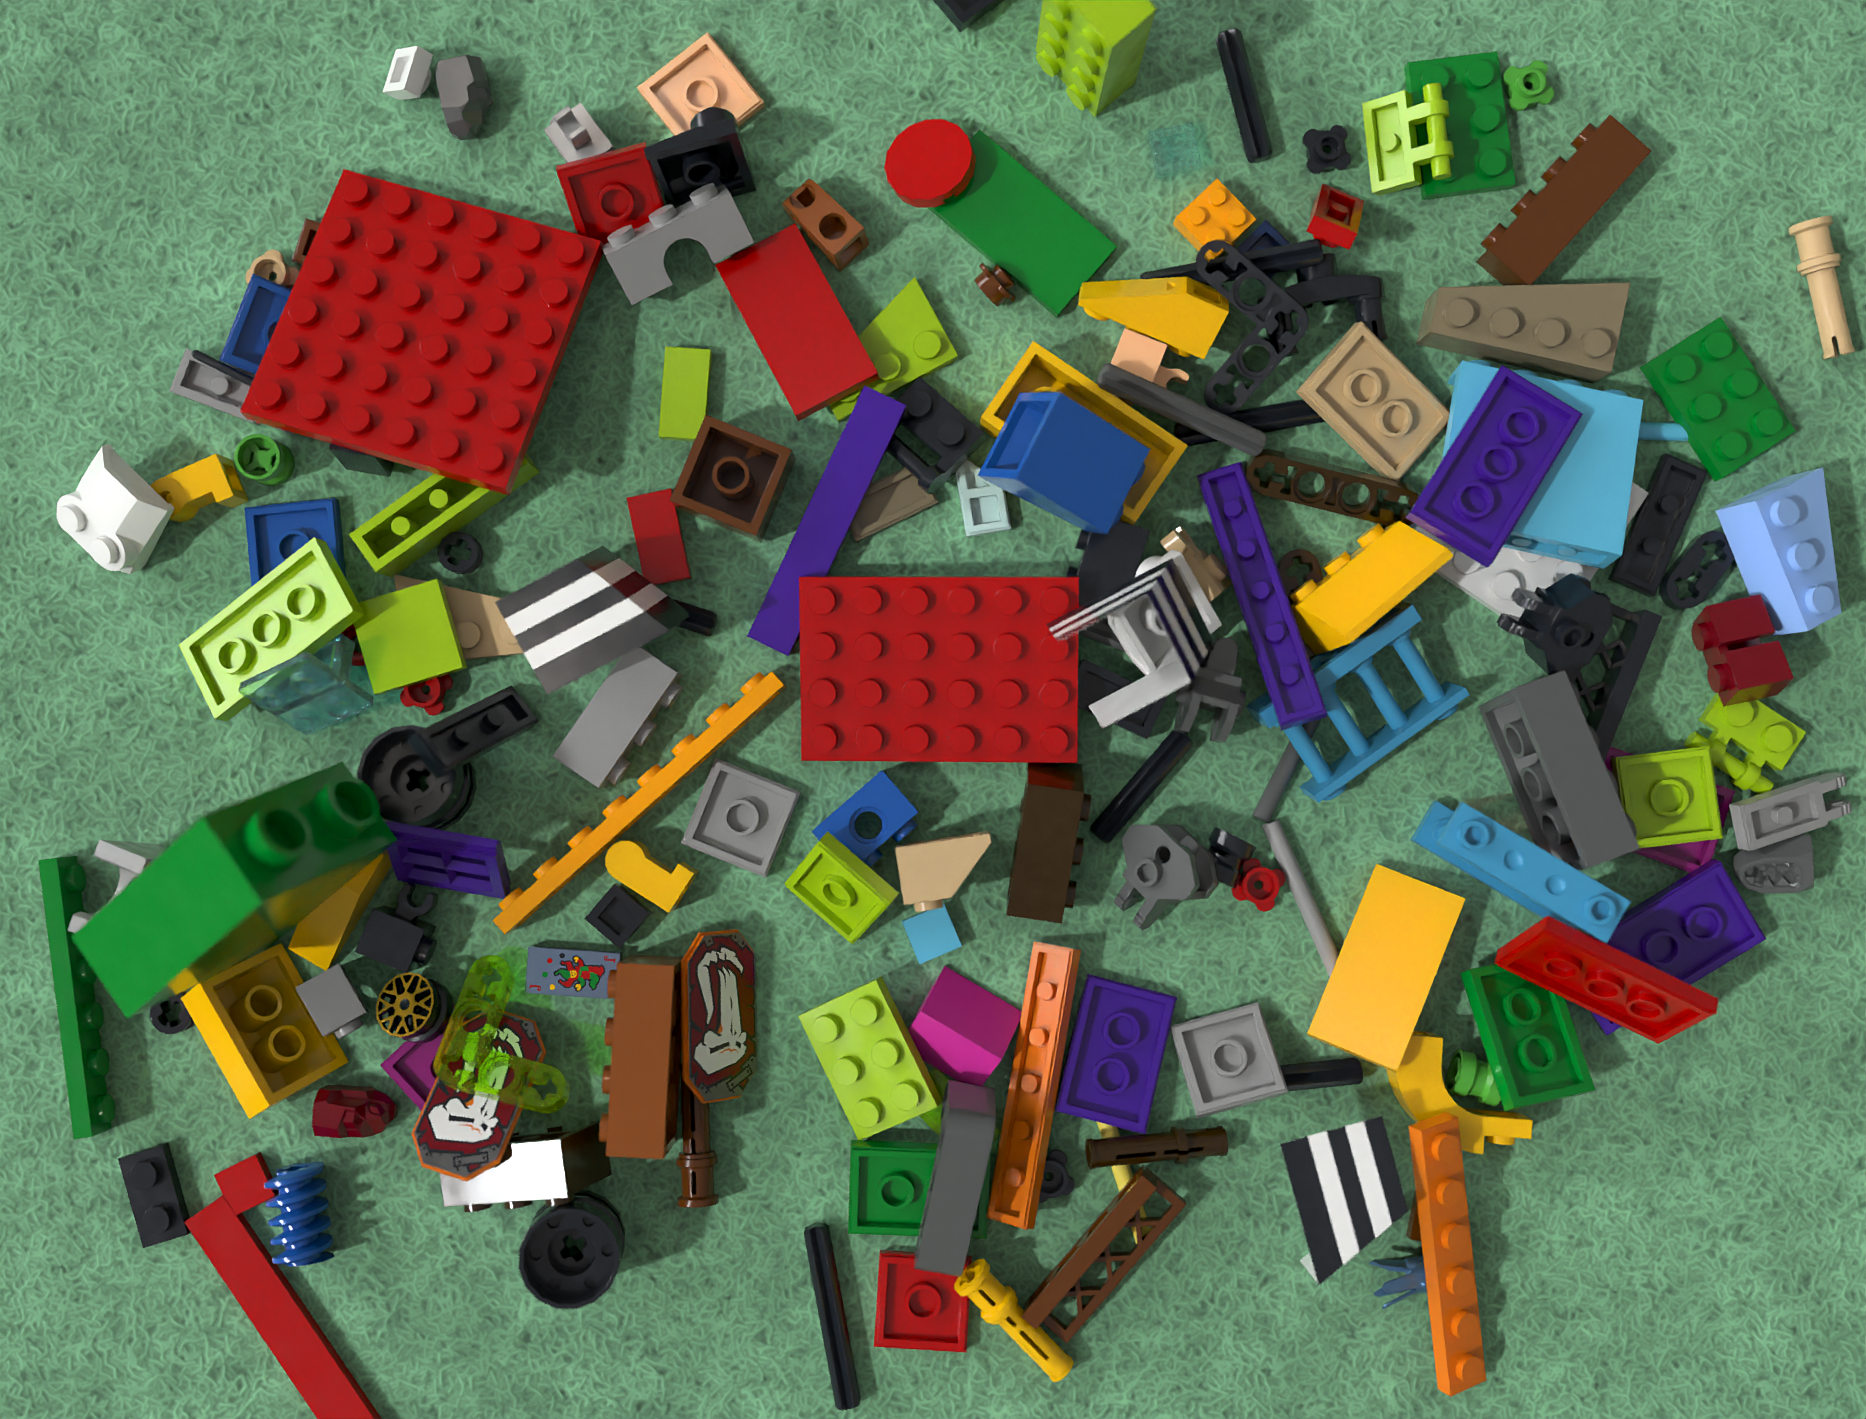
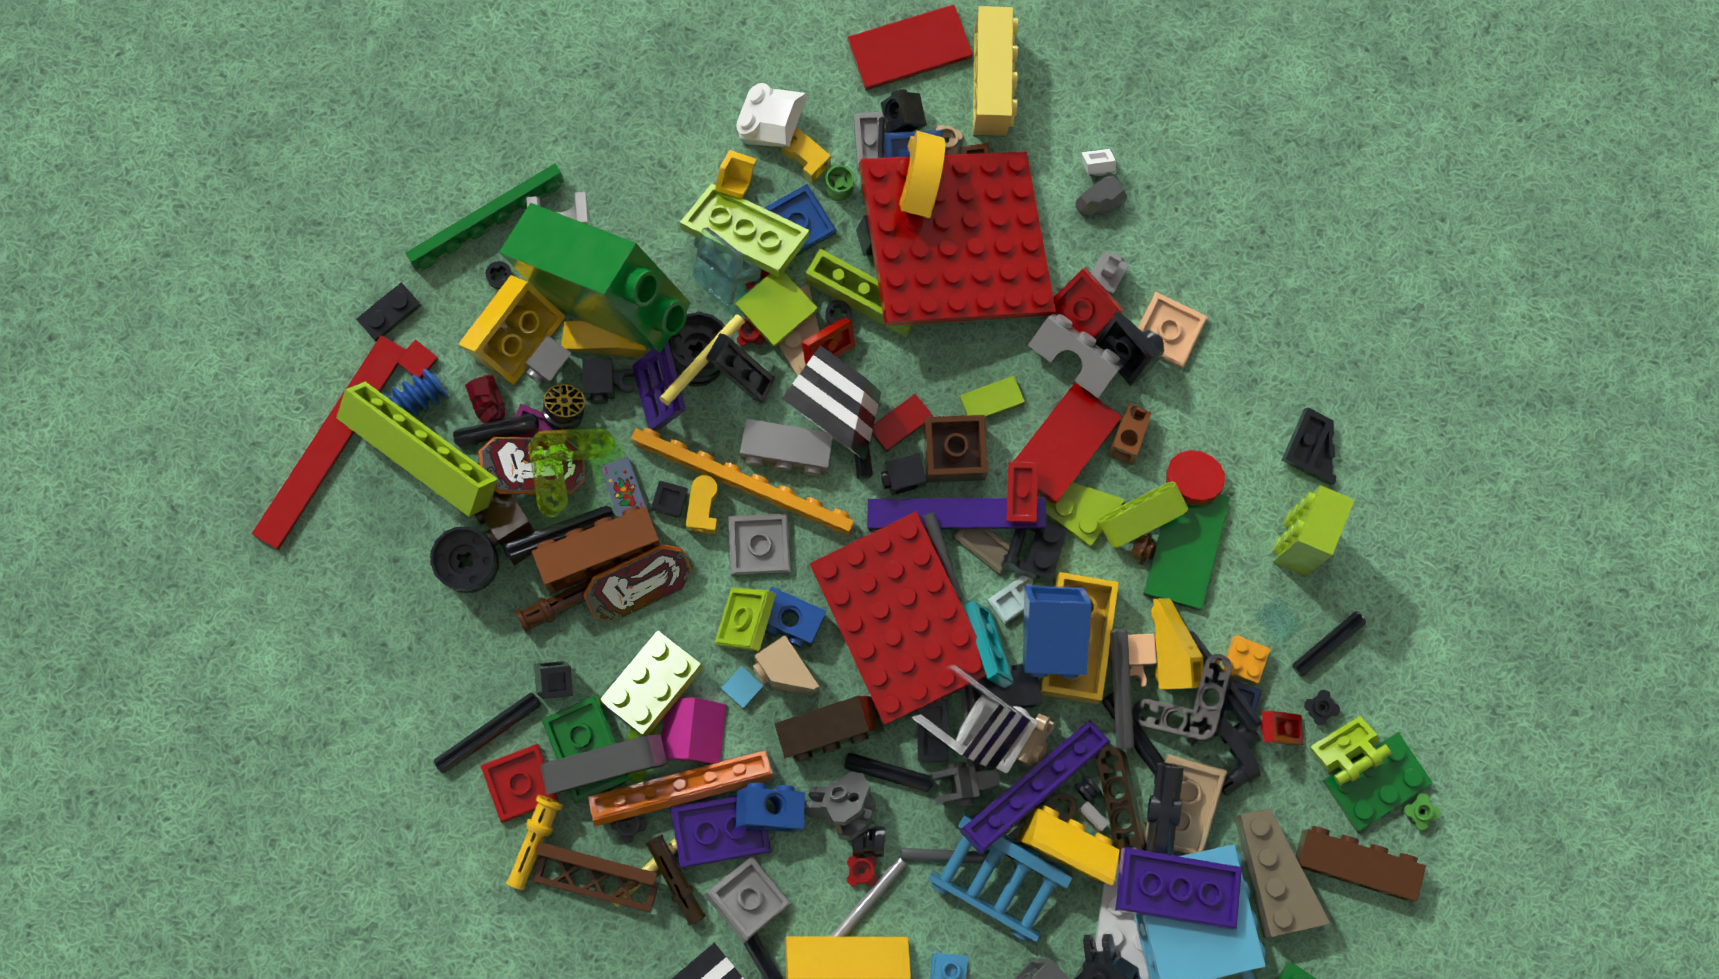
camera: 55 degrees right, 10 degrees down
(106, 262) = (909, 47): none -> red tile
(180, 604) = (735, 174): none -> yellow panel
(196, 154) = (994, 71): none -> light yellow brick
(199, 317) = (903, 112): none -> black brick
(304, 329) = (923, 173): none -> yellow arch
(376, 1253) = (417, 448): none -> lime brick
(402, 1118) = (500, 428): none -> black axle
(439, 791) = (698, 363): none -> light yellow bar
(493, 577) = (834, 338): none -> red plate
(595, 1055) = (557, 532): none -> black axle
(736, 569) = (903, 474): none -> black brick
(802, 1196) = (553, 679): none -> black brick
(843, 414) = (1022, 492): none -> red plate
(868, 567) = (940, 547): none -> dark grey piece
(951, 260) = (1143, 514): none -> lime beam
(1035, 564) = (989, 644): none -> teal tile
(1114, 1001) = (753, 814): none -> blue brick
(1293, 523) = (1088, 790): none -> black bush
(1333, 535) = (1092, 817): none -> light grey tile
(1374, 432) = (1164, 808): none -> black piece

